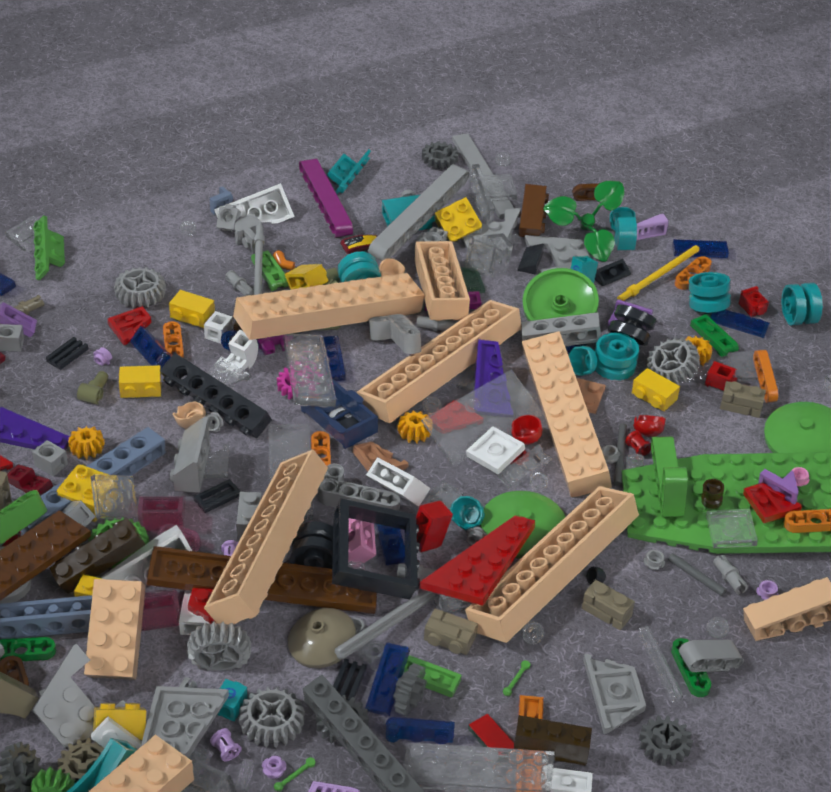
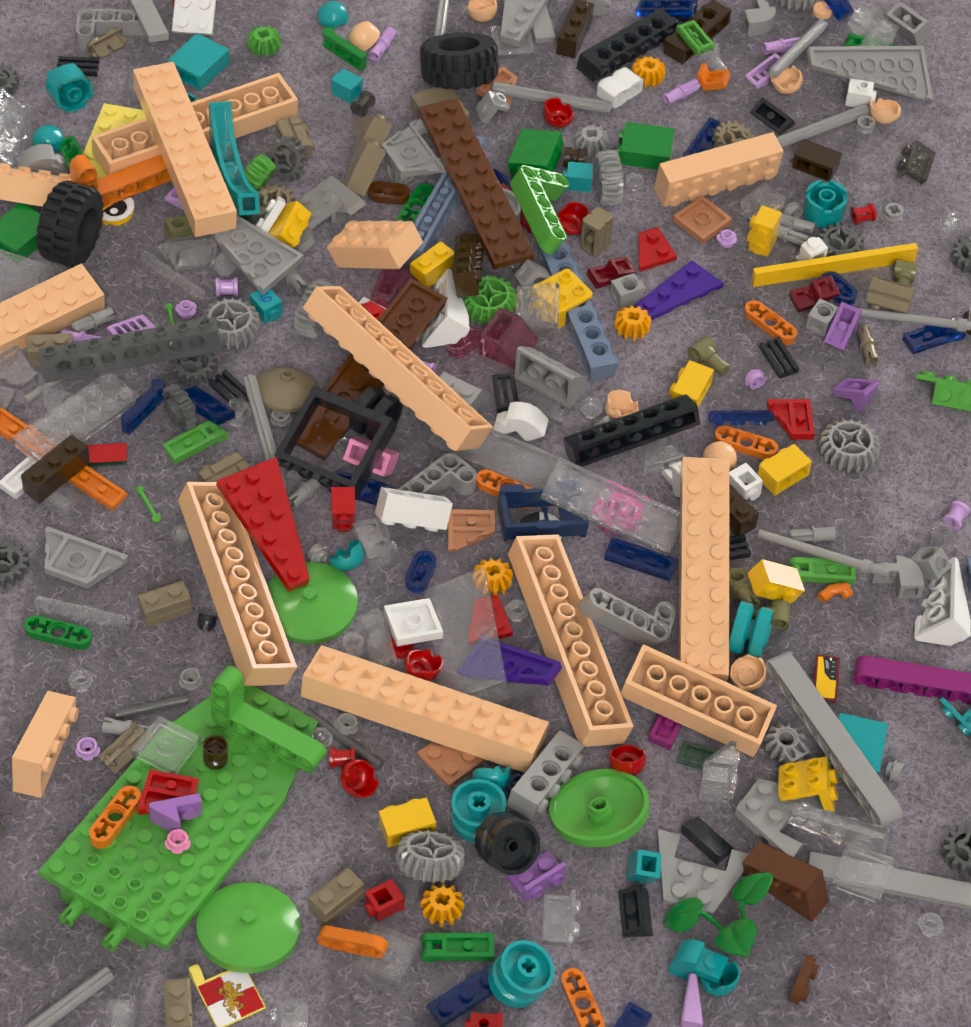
camera: 120 degrees right, 10 degrees up
(29, 361) = (768, 314): none -> orange beam
(82, 295) = (858, 390): none -> medium lavender slope
(170, 223) = (957, 512): none -> lavender bush
(199, 350) = (721, 450): none -> light nougat hair
(250, 465) = (524, 419): none -> white brick
(442, 470) = (420, 573): none -> clear blue plate
(512, 298) = (627, 759): none -> red hair
(634, 289) = (588, 915): yellow bar -> none
(651, 294) = (559, 919): none -> clear bracket
(710, 655) = (49, 641): light grey beam -> none
(741, 559) = (119, 752): none -> dark tan hinge

